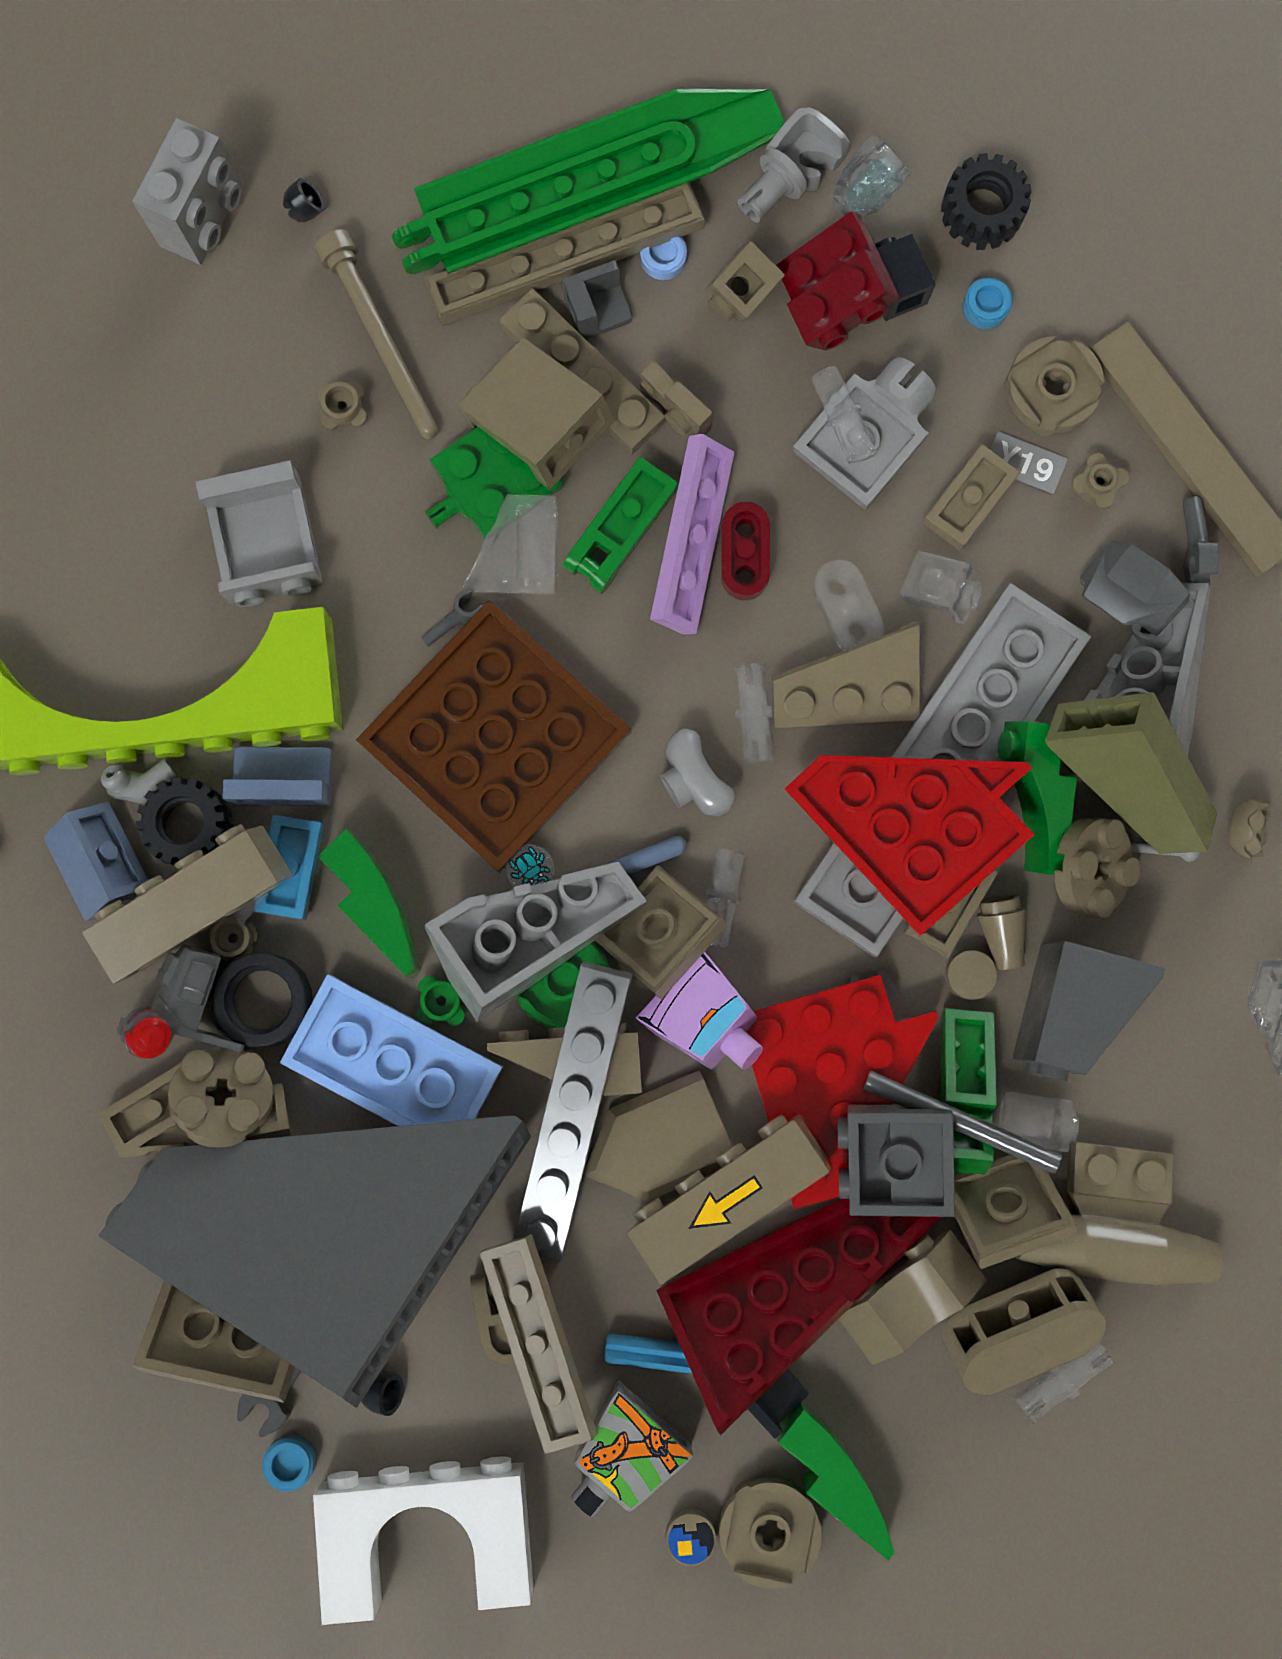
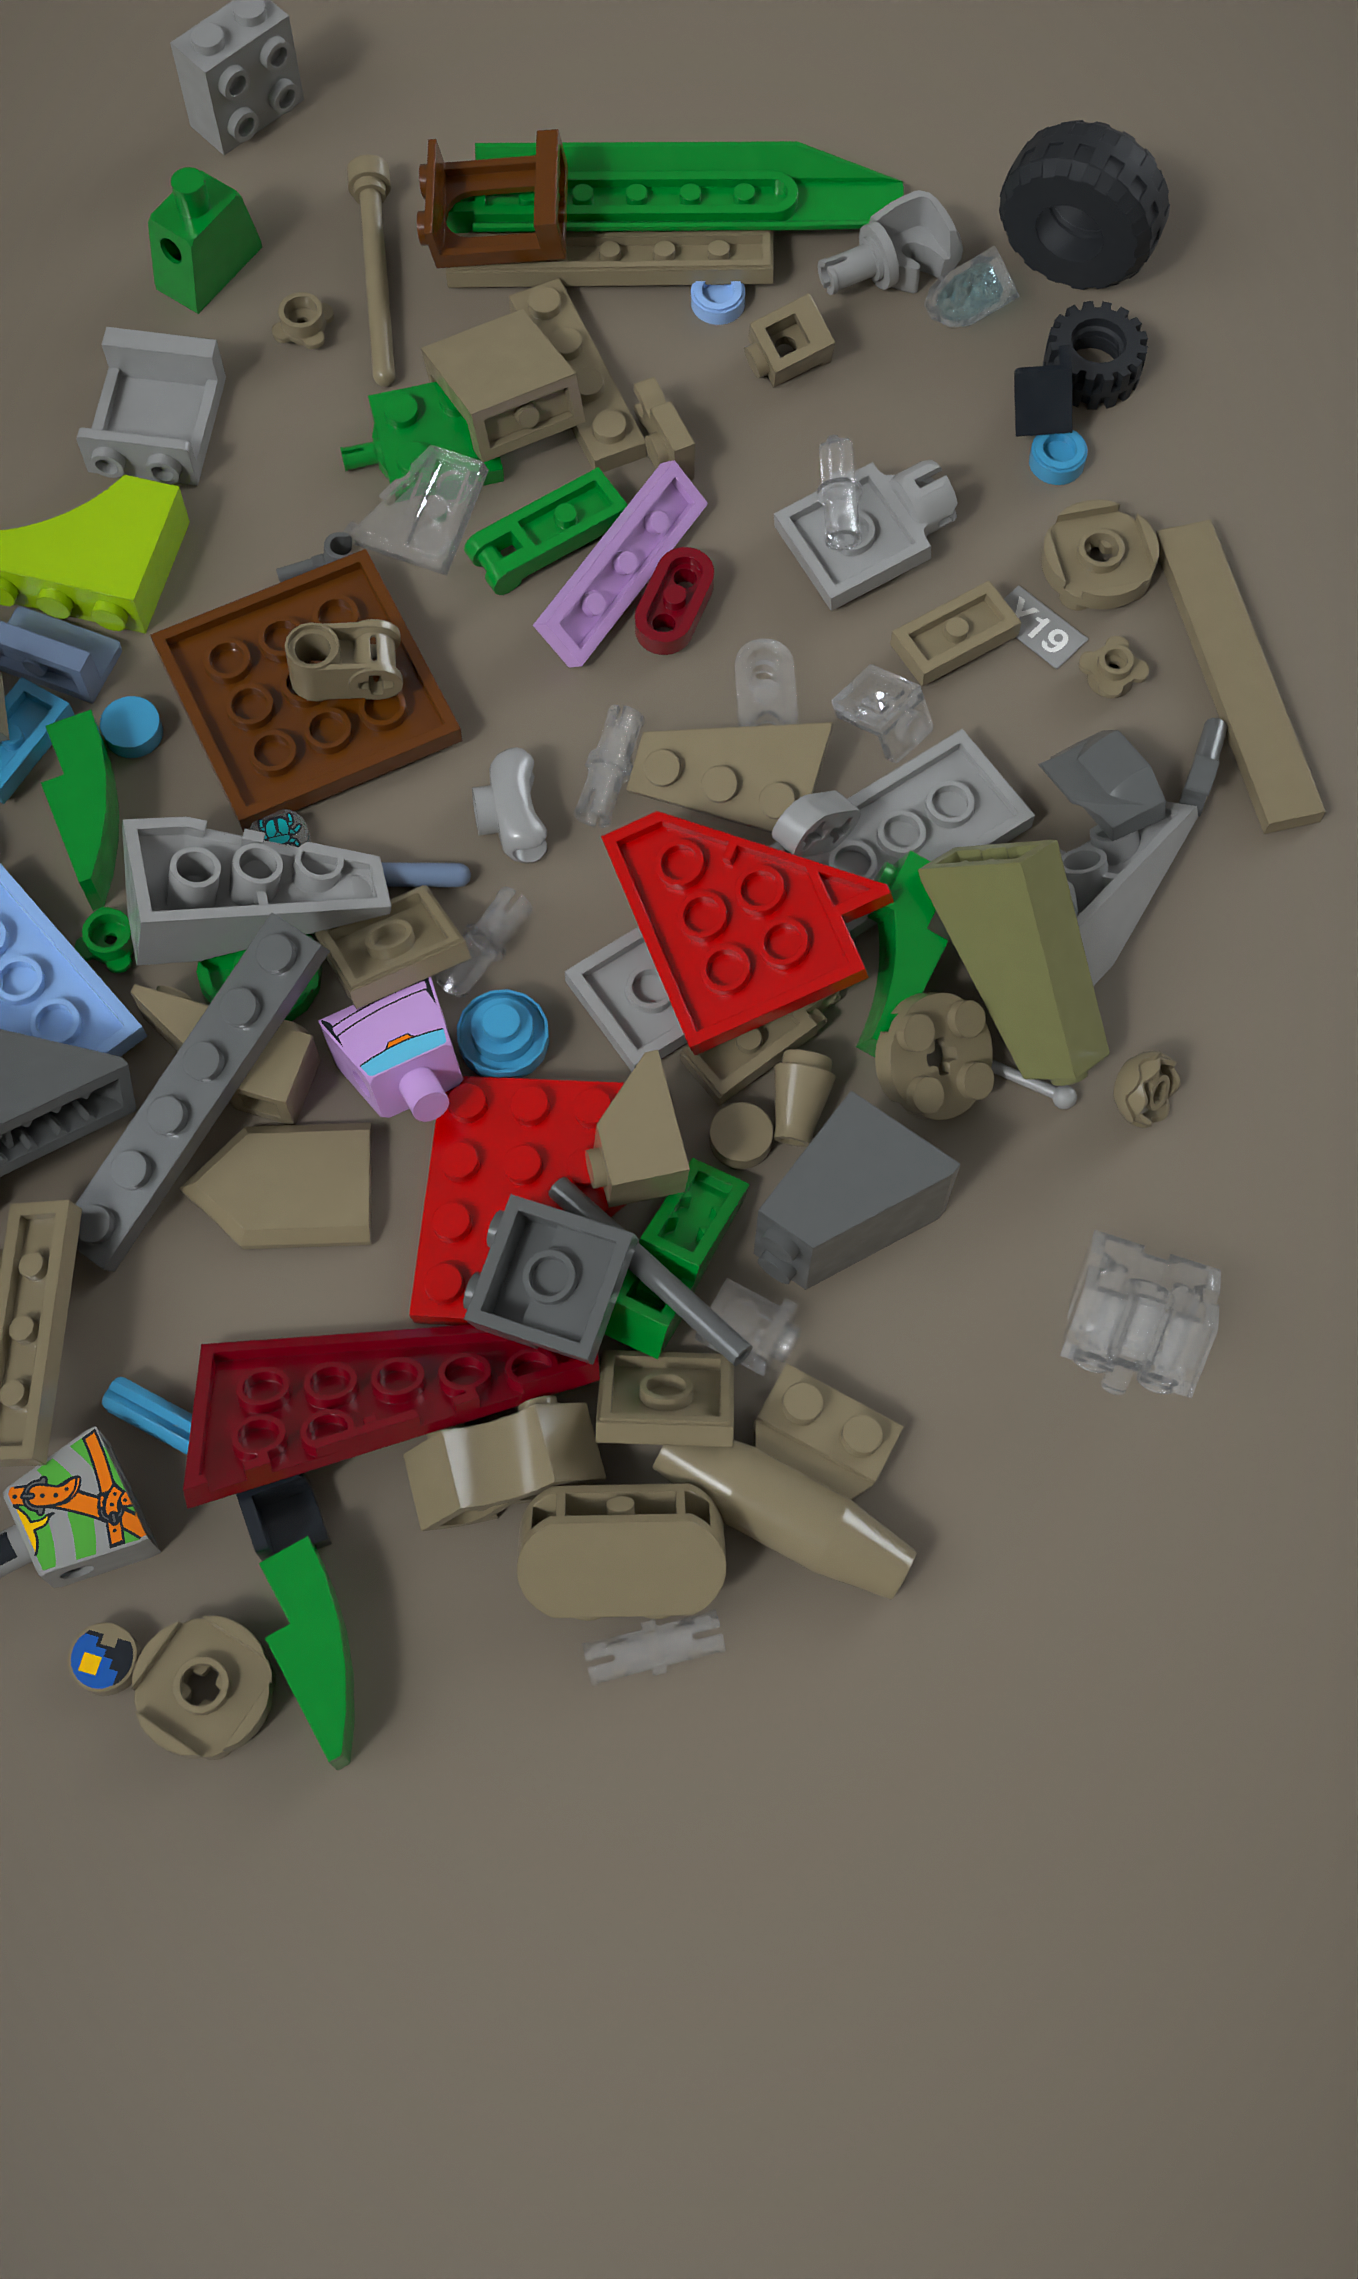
camera: 20 degrees right, 15 degrees down
(233, 359) = (199, 238): none -> green torso
(303, 201) = (356, 126): black hinge -> none
(373, 818) = (131, 727): none -> dark azure tile
(414, 232) = (450, 182): none -> reddish brown panel
(528, 710) = (346, 660): none -> dark tan piece
(596, 300) = (623, 309): dark grey panel -> none
(729, 1198) = (333, 1259): dark tan brick -> none
(769, 967) = (503, 1034): none -> dark azure plate
(837, 283) = (890, 371): dark red plate -> none
(908, 274) = (965, 392): black brick -> none
(917, 1027) = (639, 1140): none -> dark tan slope
(939, 72) = (1084, 204): none -> black tyre
(945, 721) = (816, 823): none -> light grey beam
(968, 266) = (1044, 397): none -> black panel

